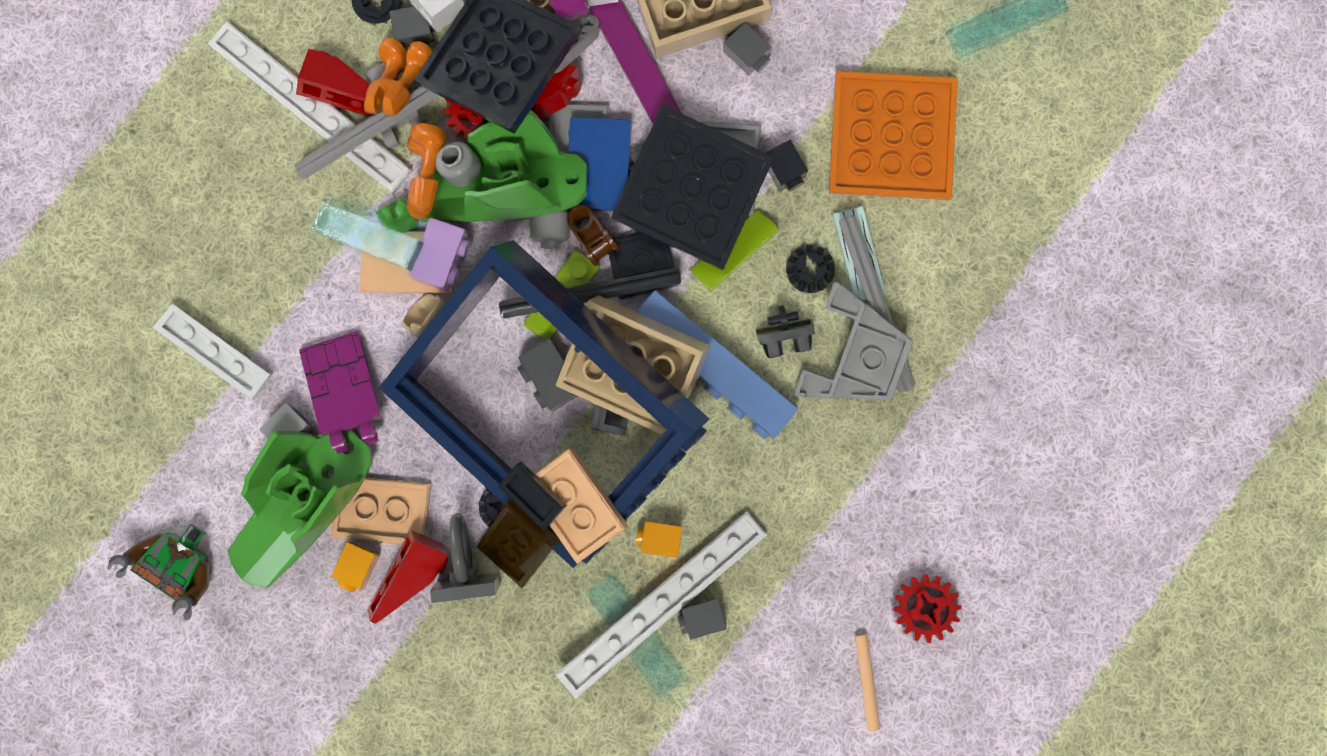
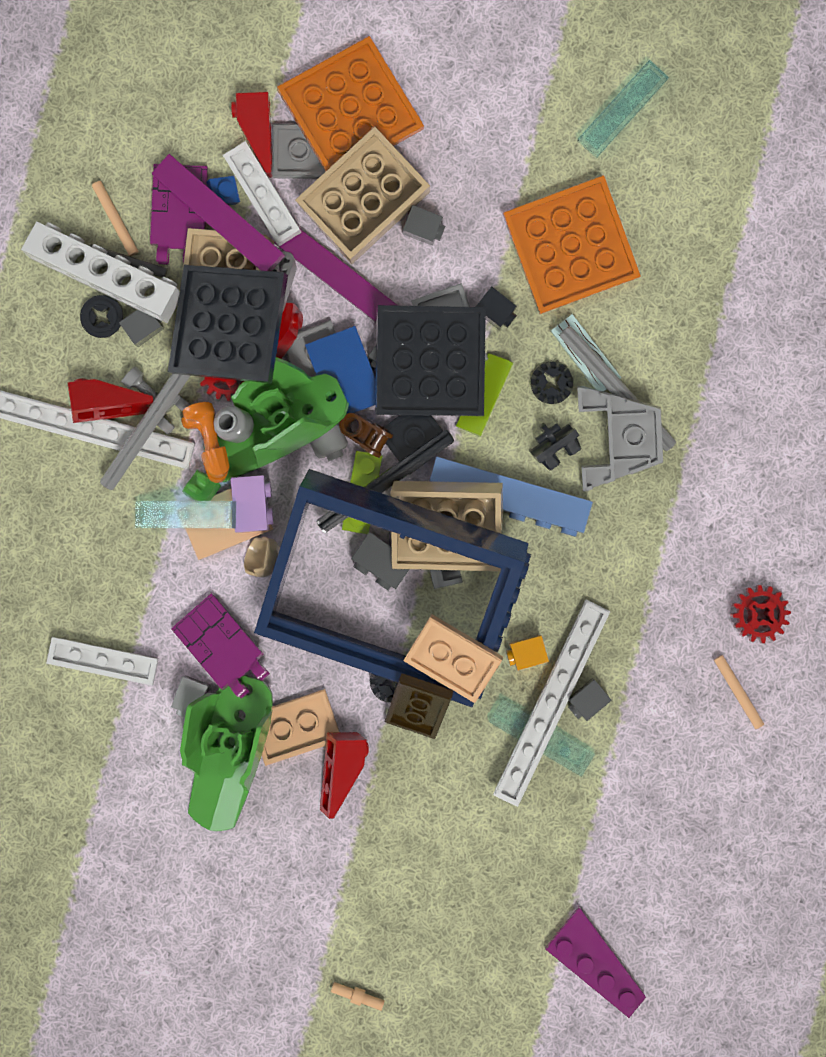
camera: 30 degrees left, 5 degrees up
(170, 565) = (150, 845): torso -> none
(354, 567) = (295, 781): light orange brick -> none
(386, 92) = (146, 389): orange piece -> none
(464, 580) = (389, 754): dark grey tile -> none
(532, 495) = (416, 666): black tile -> none

